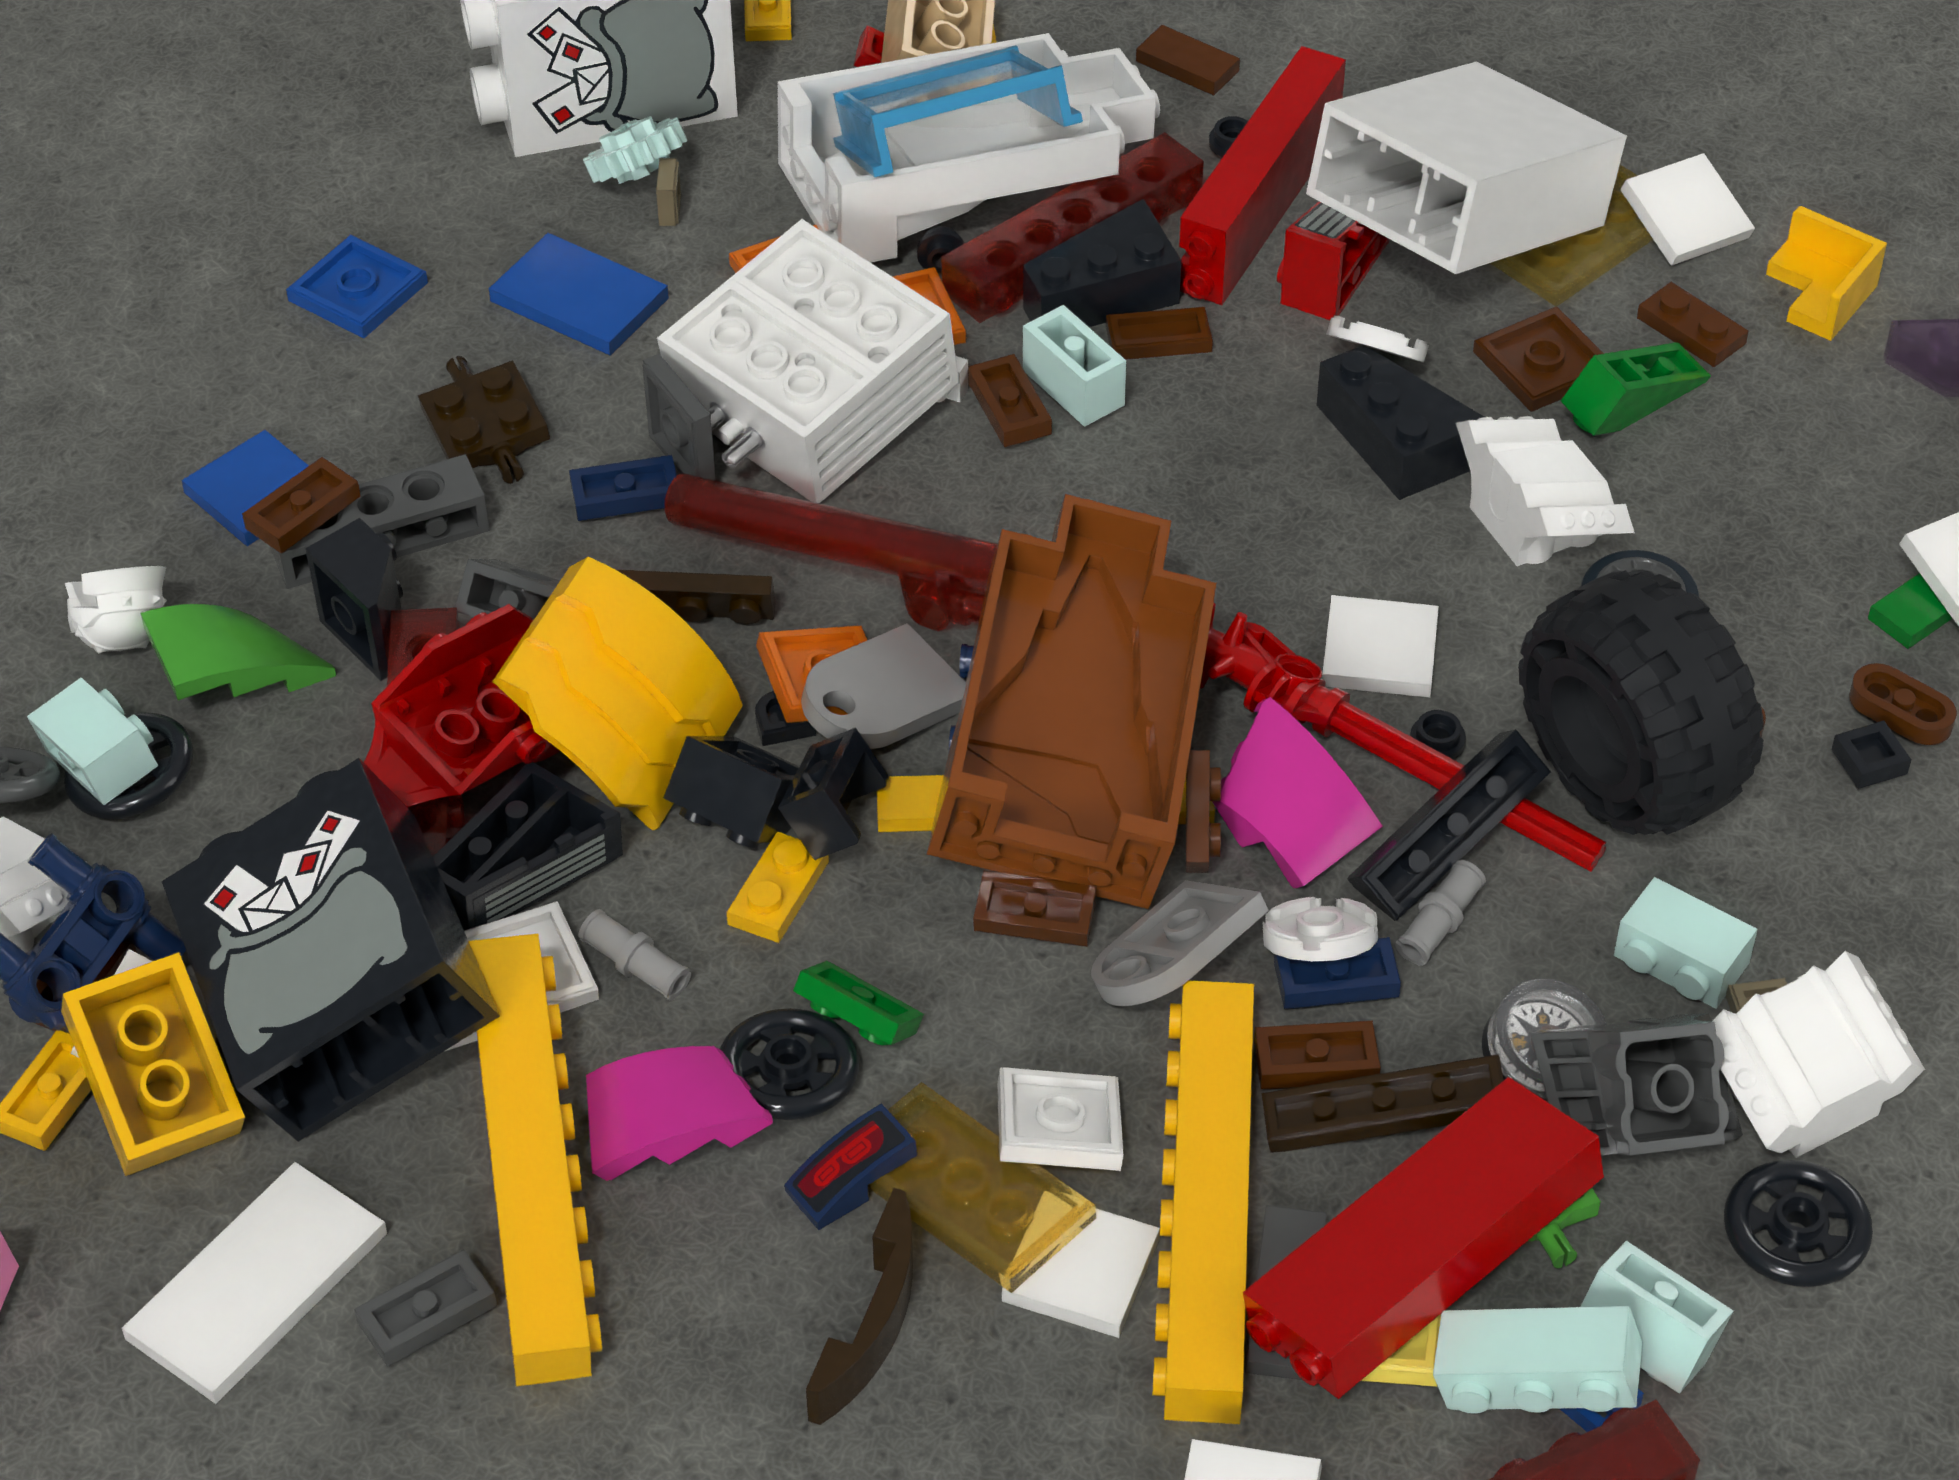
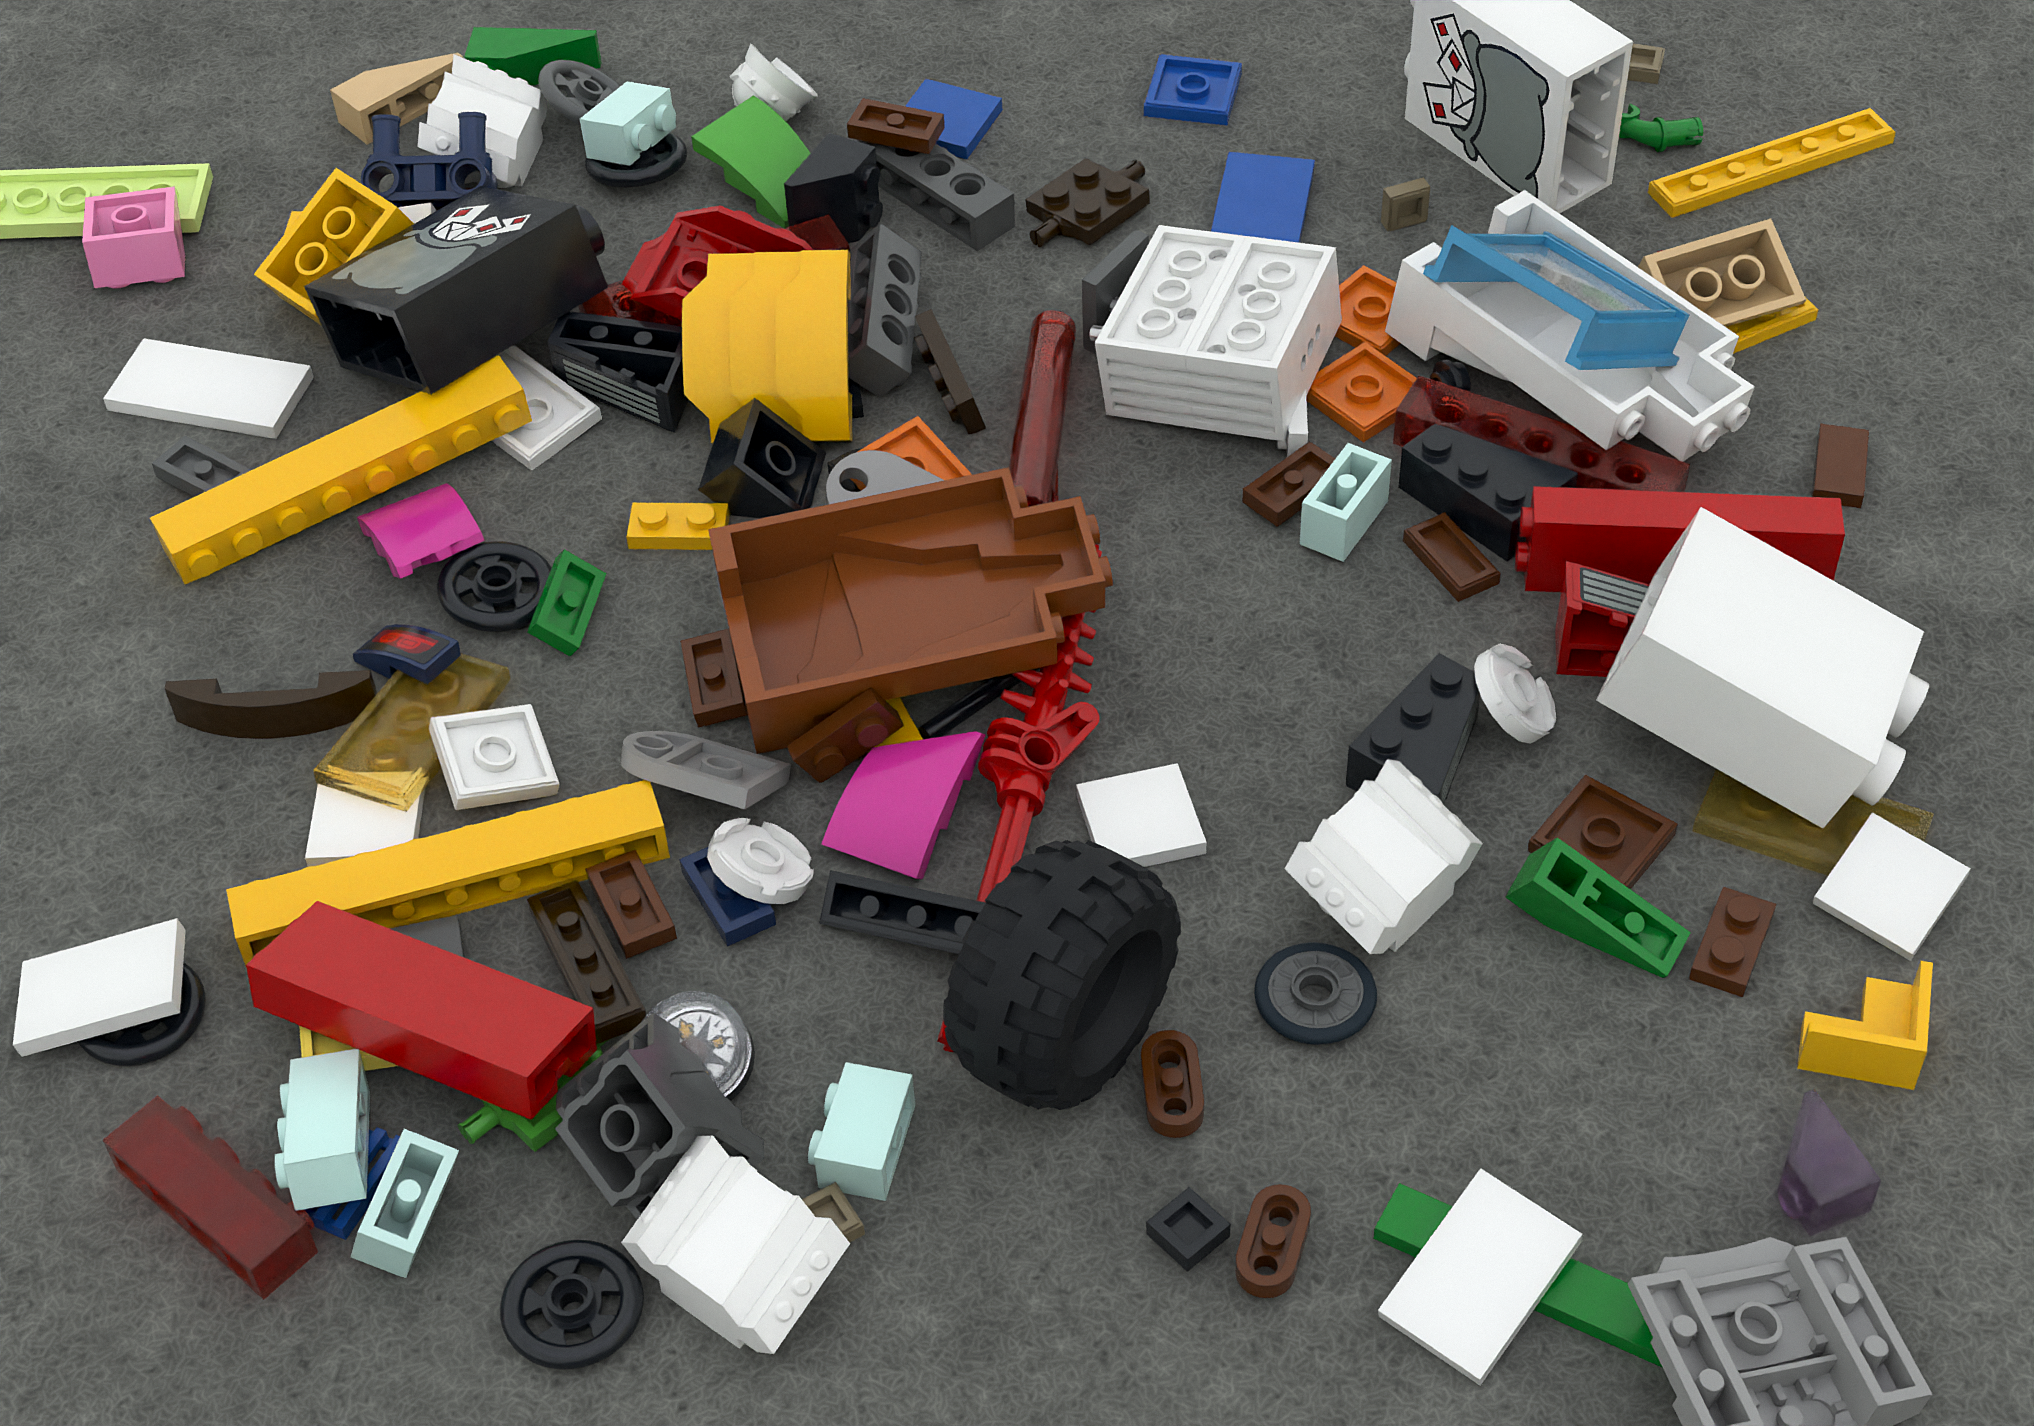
camera: 70 degrees right, 0 degrees up
(621, 487) = (1046, 289): dark blue plate -> none
(634, 149) = (1433, 161): light aqua gear -> none
(634, 954) = (569, 468): light grey pin -> none
(825, 786) = (746, 498): black panel -> none
(1440, 912) = (828, 944): light grey pin -> none

